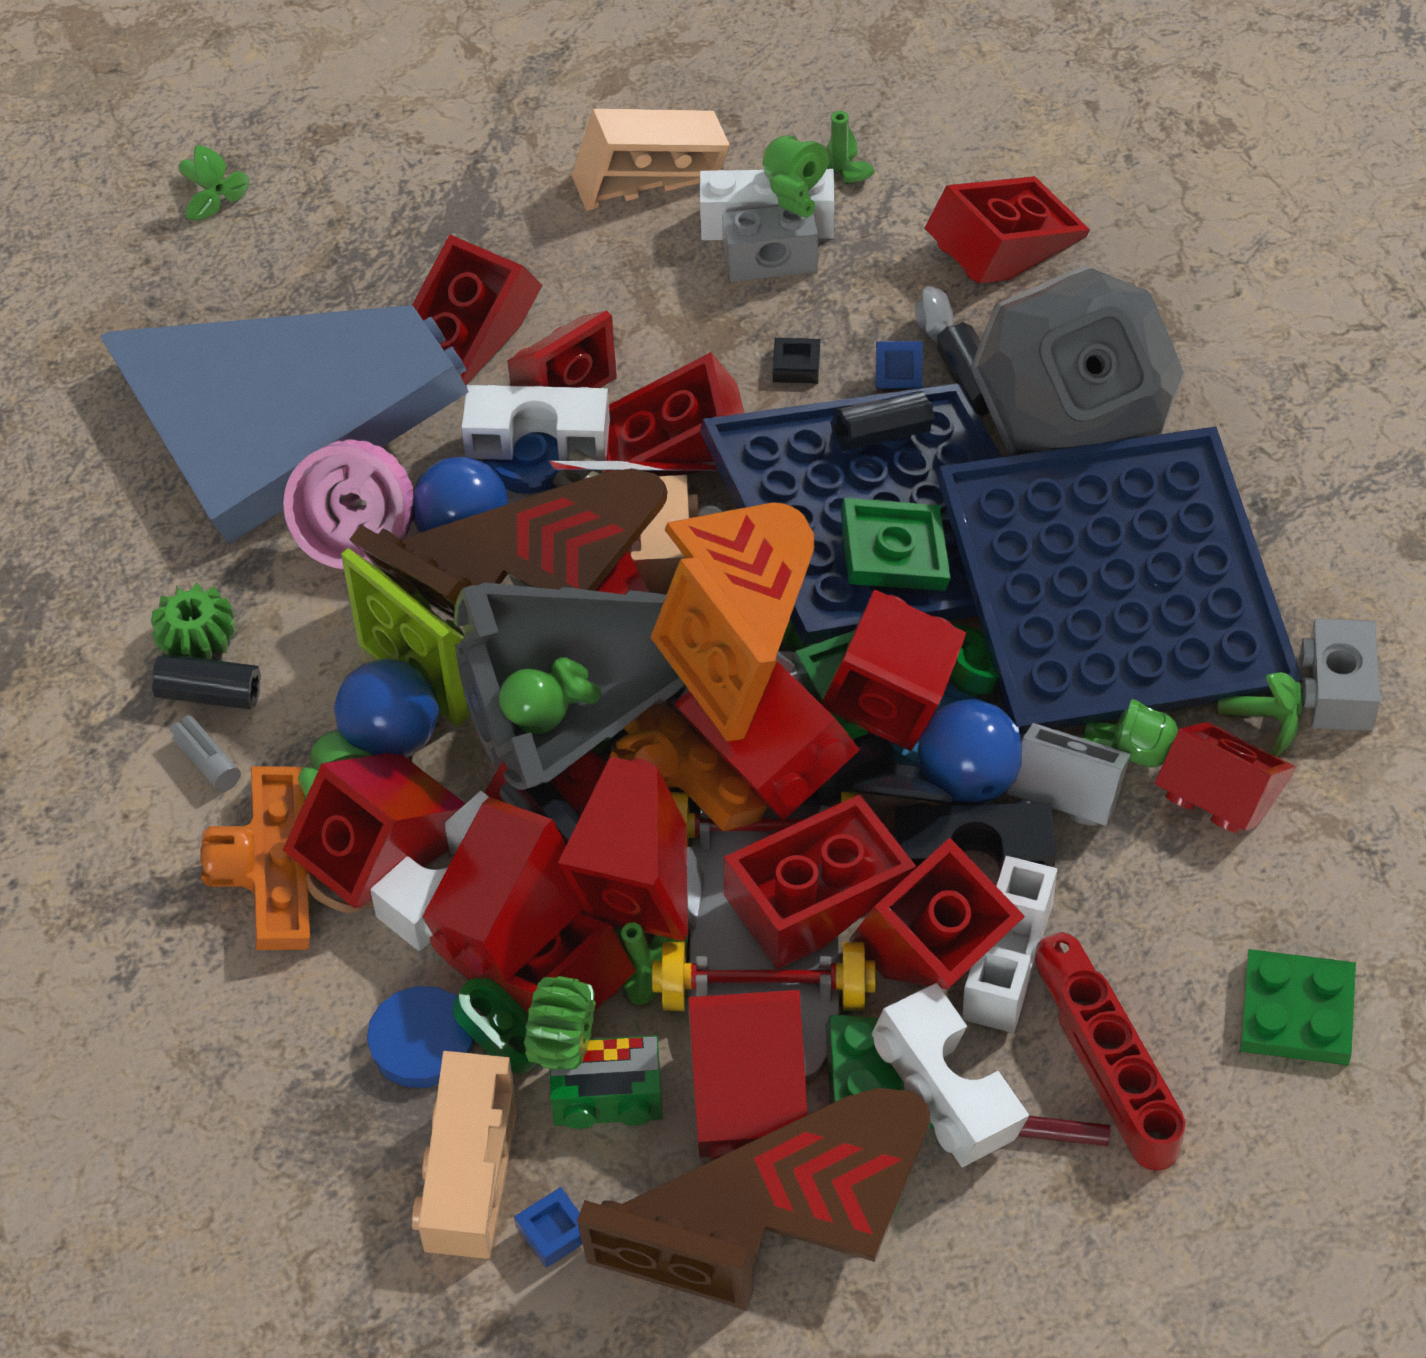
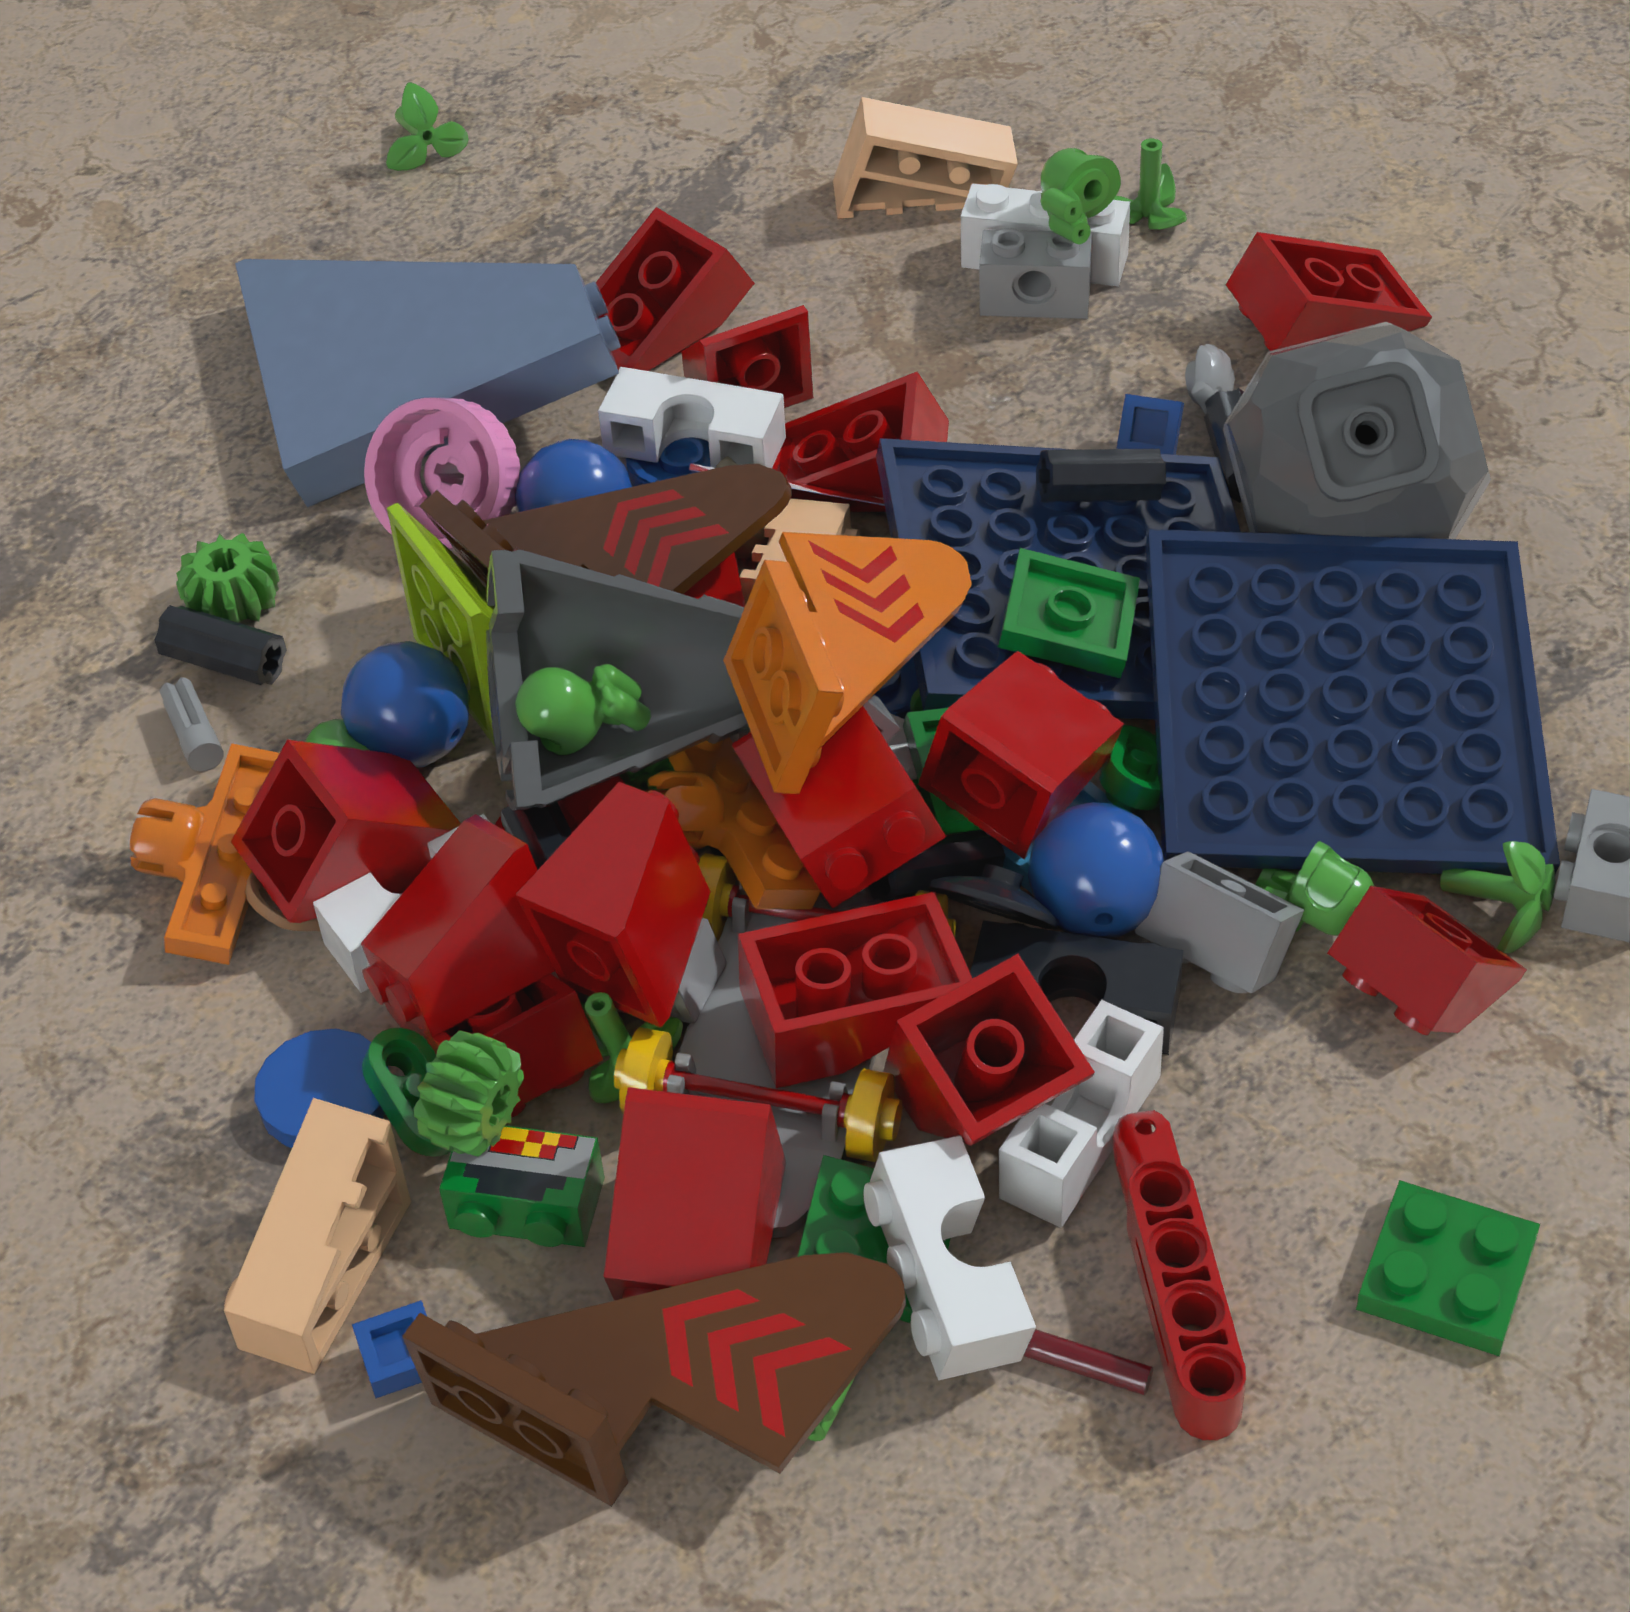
camera: 15 degrees right, 5 degrees down
(796, 360) = (1030, 408): black tile -> none

